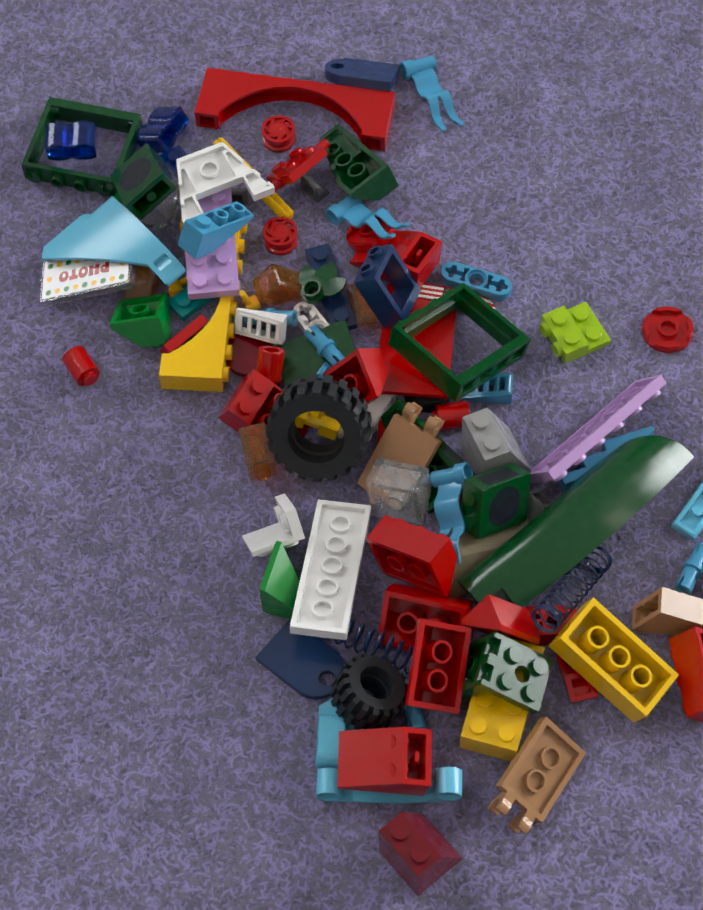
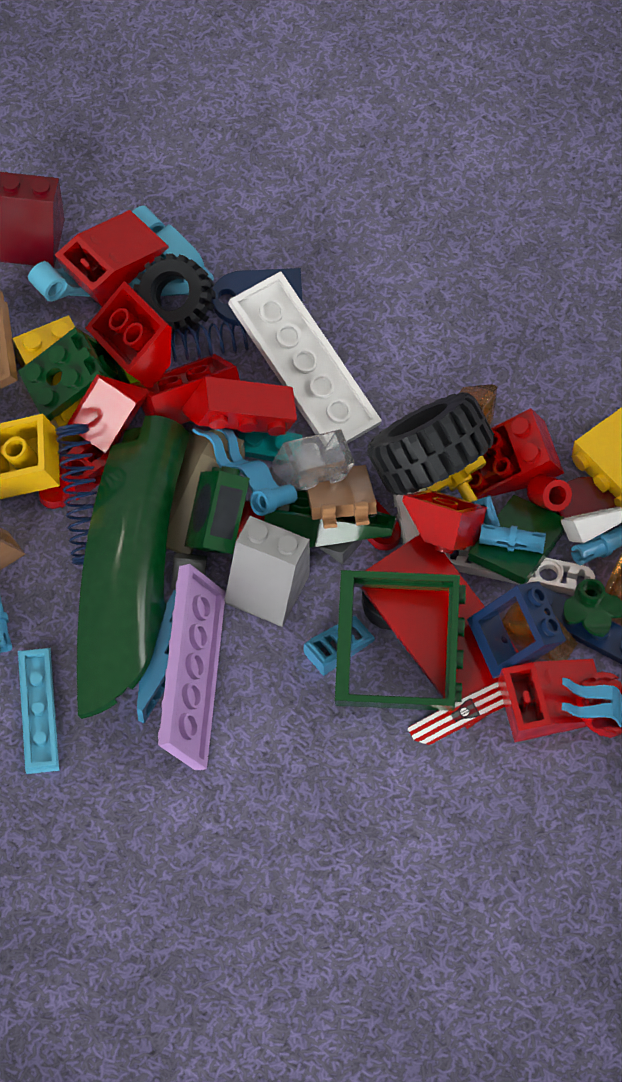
camera: 135 degrees right, 0 degrees up
(279, 584) = (337, 320): green slope -> none
(286, 531) = (384, 359): white bracket -> none
(451, 414) = (330, 590): red brick -> none
(471, 272) = (431, 748): dark azure beam -> none
(573, 332) = (310, 768): lime plate -> none
(664, 336) = (222, 863): red tile -> none

